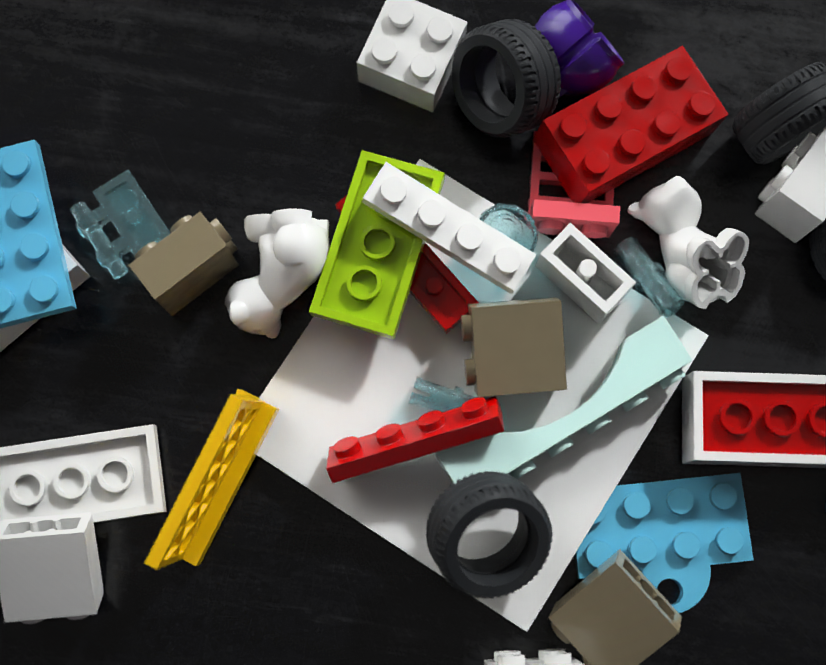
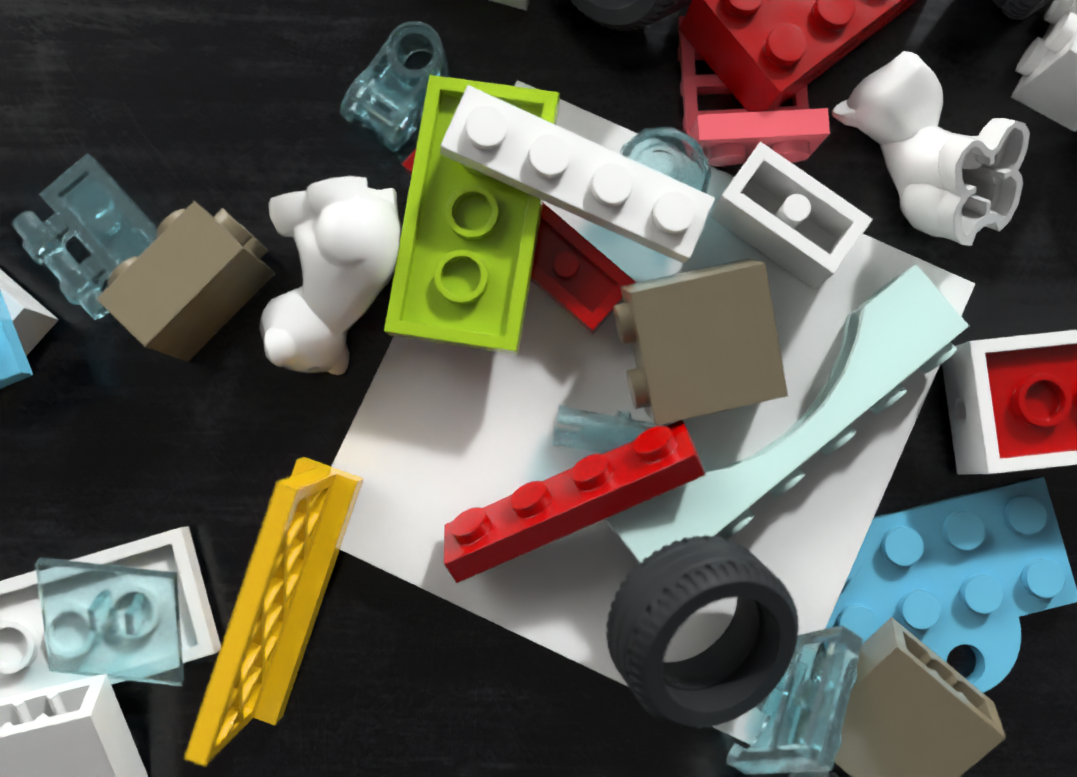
camera: 10 degrees left, 5 degrees up
(102, 477) = (111, 621): none -> clear light blue piece
(337, 153) = (390, 95): none -> clear light blue piece
(551, 596) = (805, 707): none -> clear light blue wing
(649, 277) = (890, 219): clear light blue pin -> none

